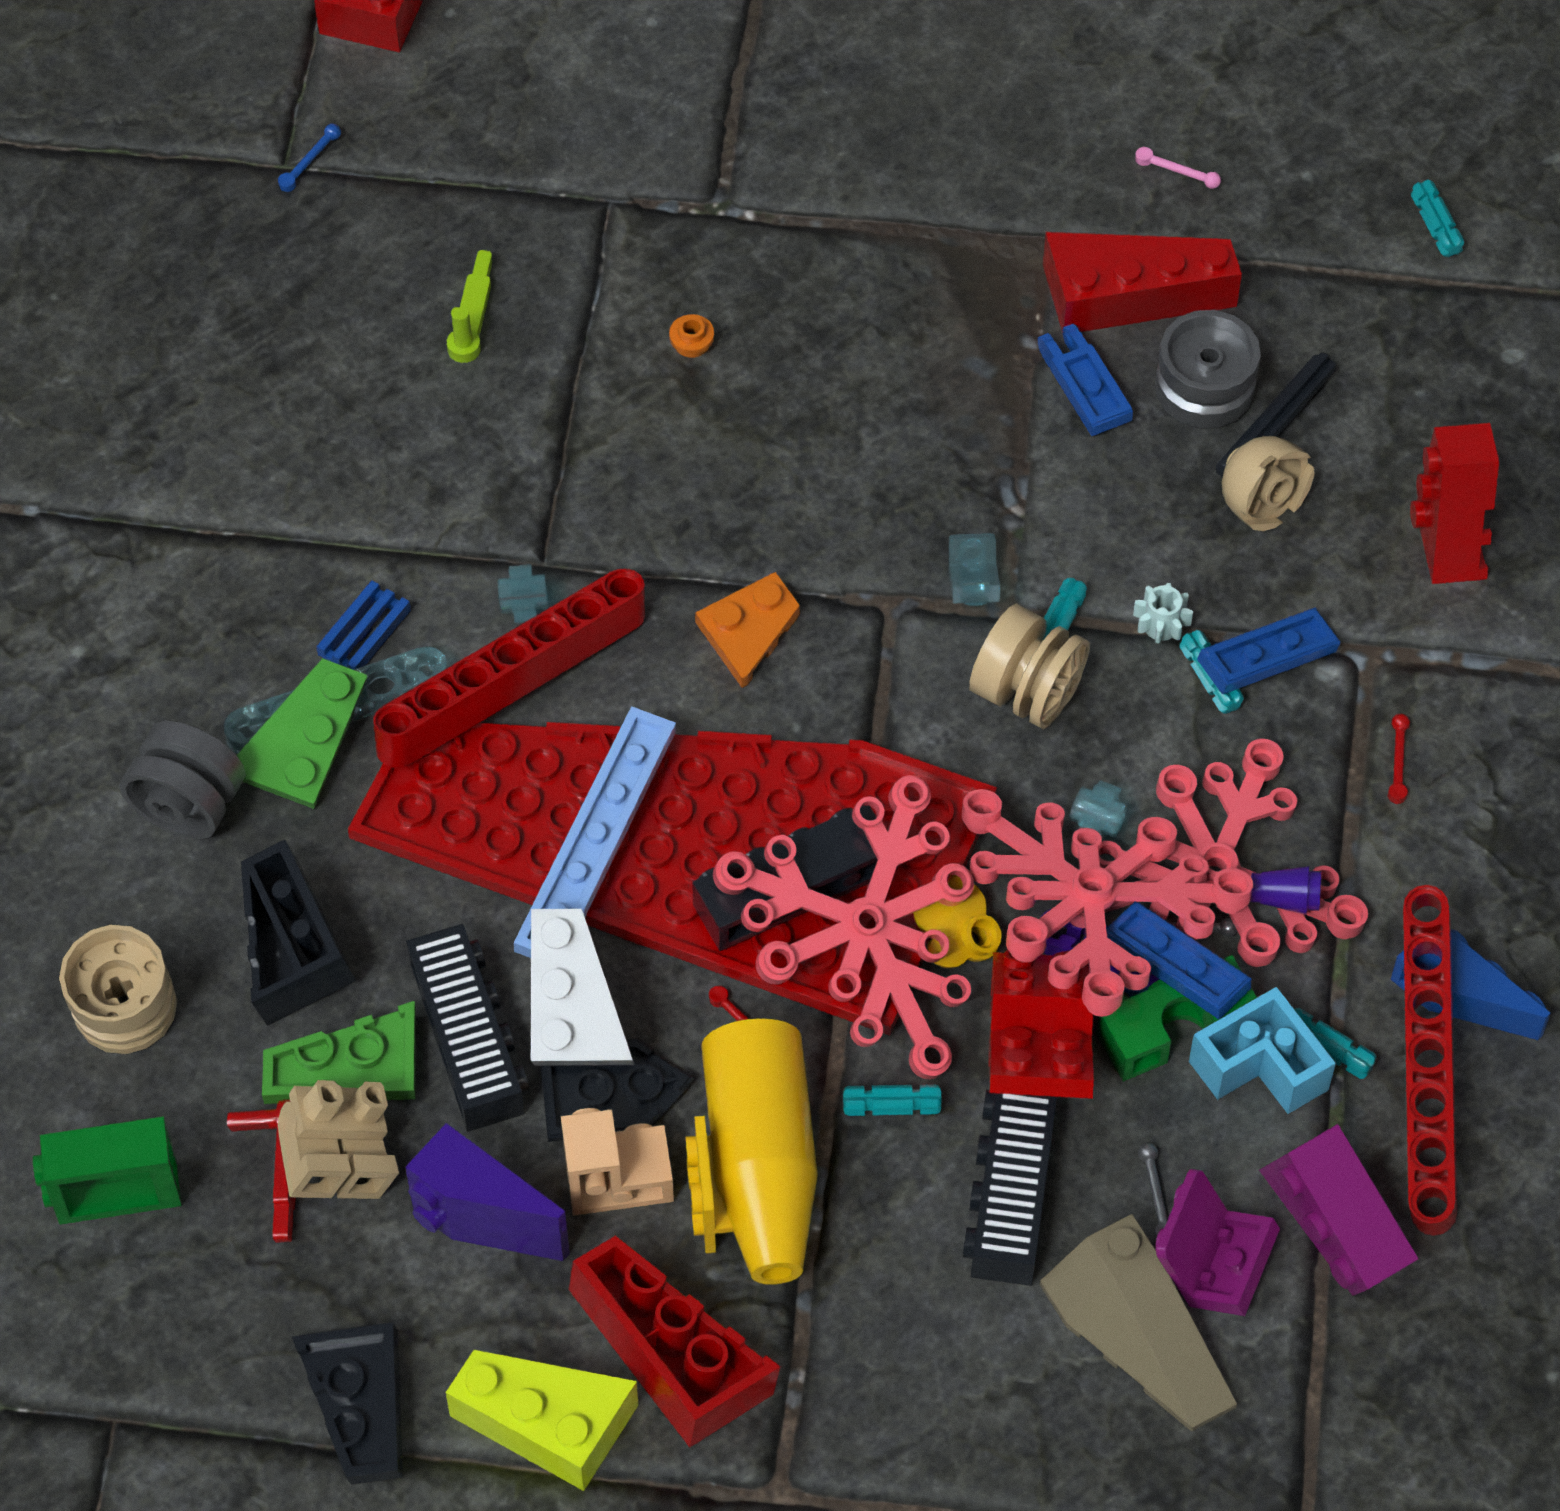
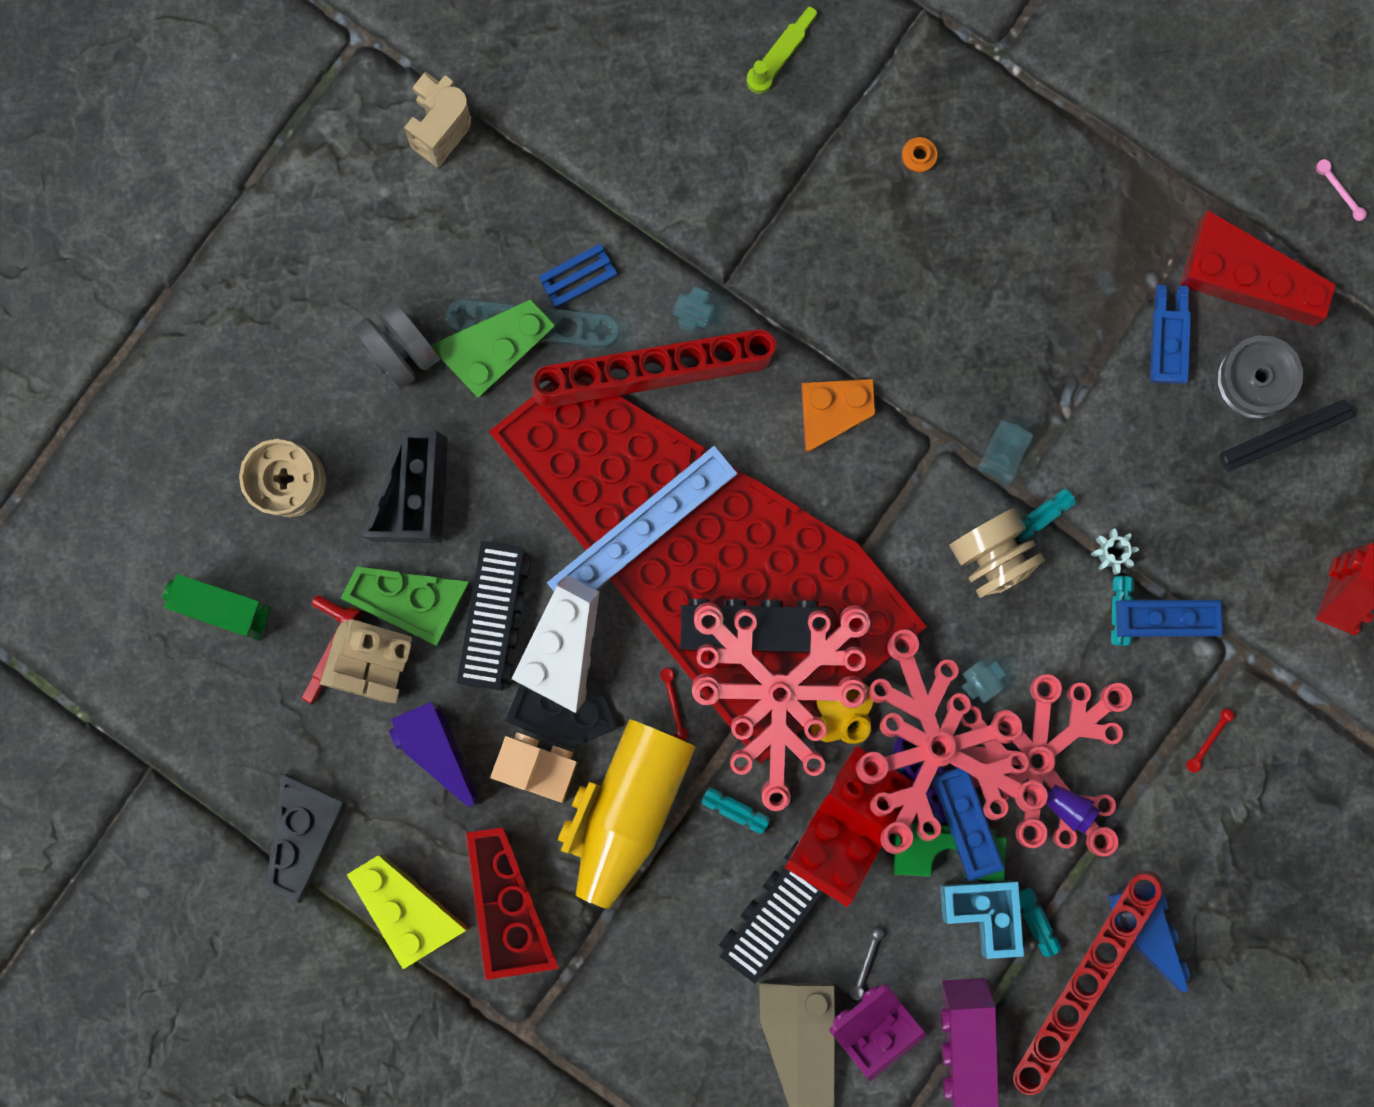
camera: 30 degrees right, 25 degrees up
(105, 533) = (445, 119): none -> tan hips
(1266, 480) = (1243, 488): tan cylinder -> none

